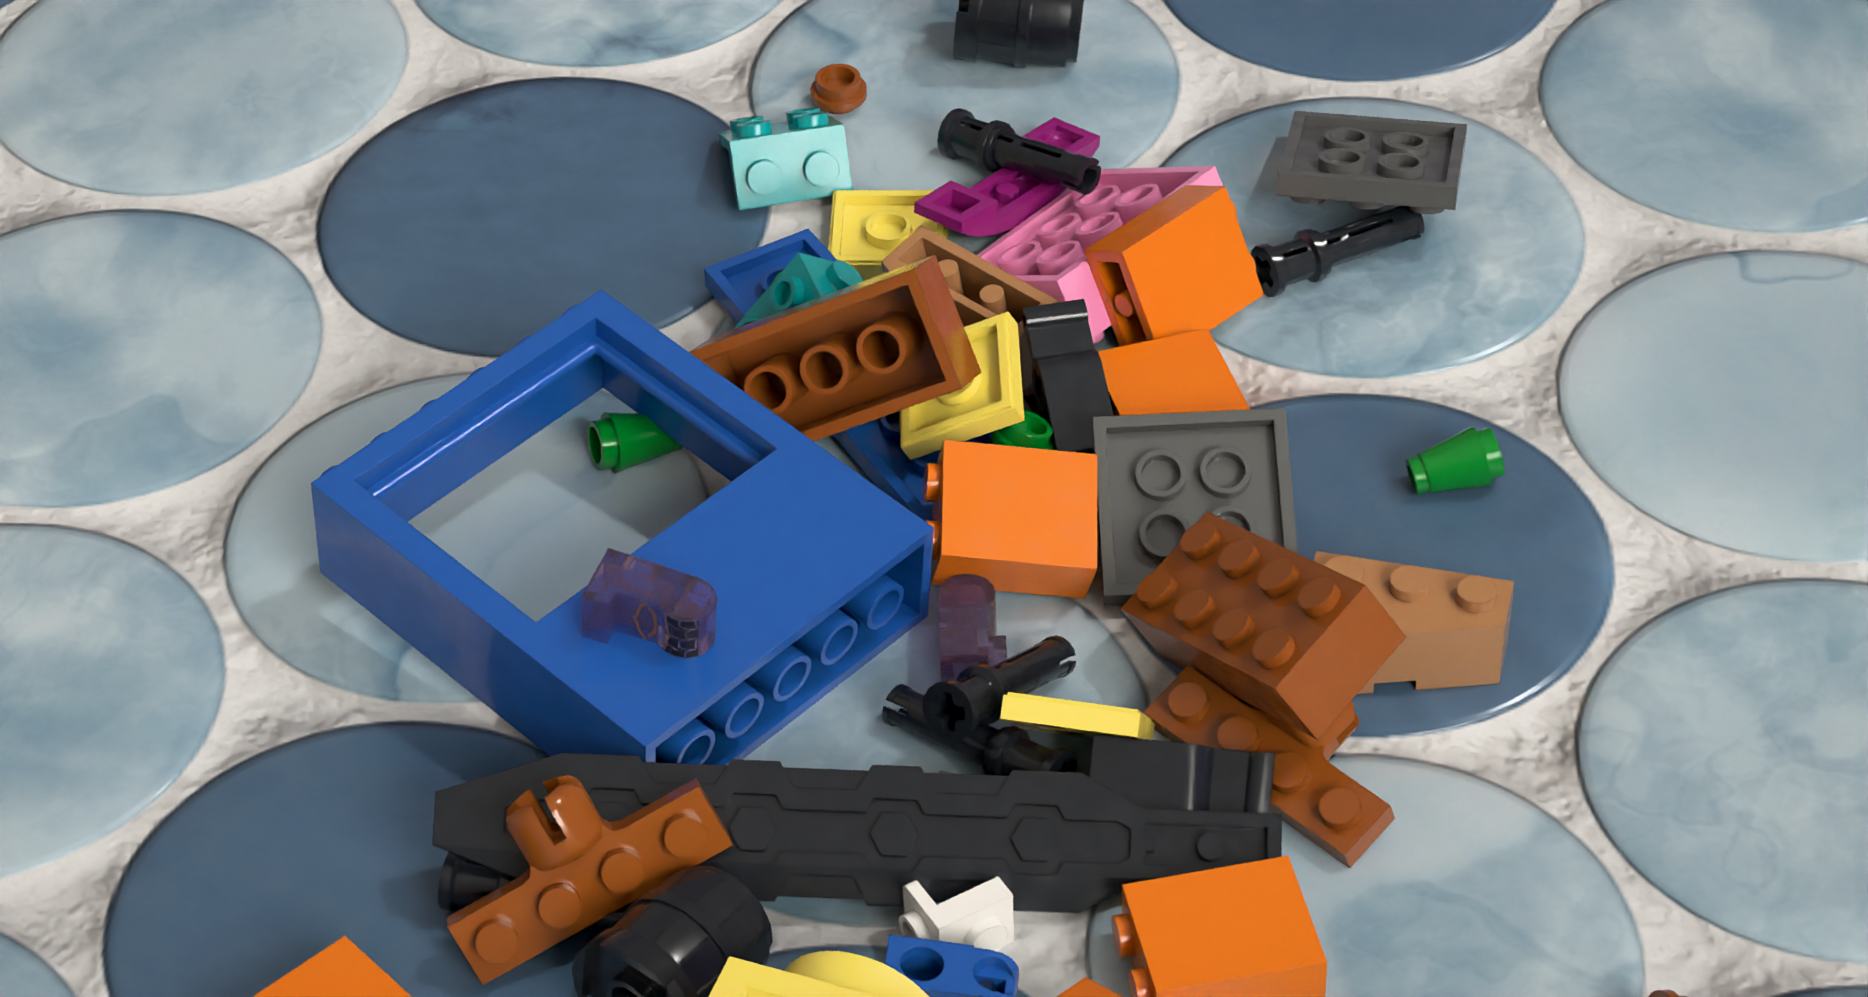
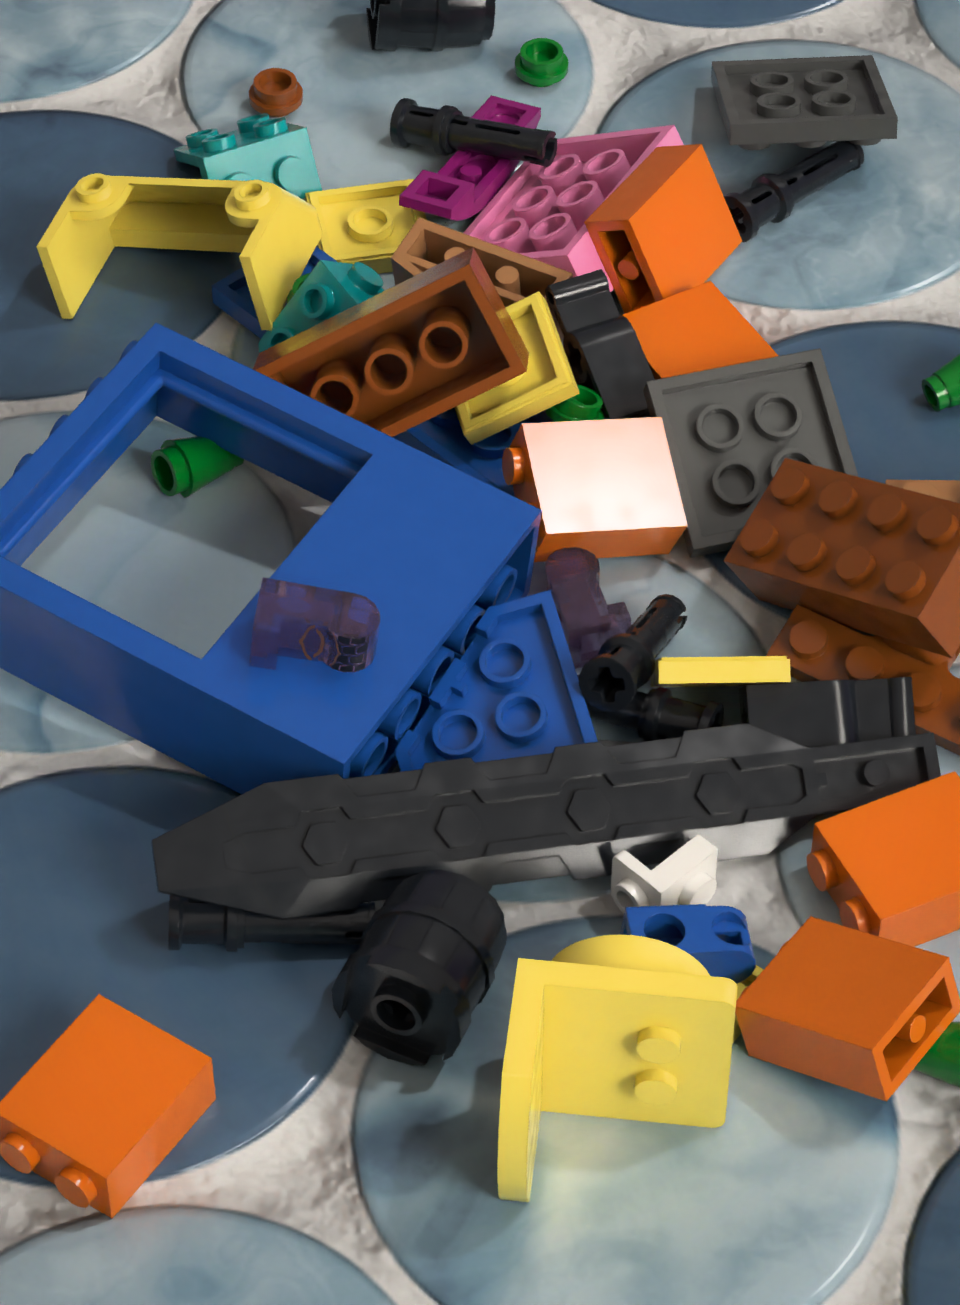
camera: 15 degrees left, 5 degrees up
(581, 869) = (311, 891): dark orange plate -> none
(749, 209) = (246, 217): none -> light yellow windscreen
(855, 706) = (506, 694): none -> blue plate
(1120, 91) = (541, 62): none -> green plate

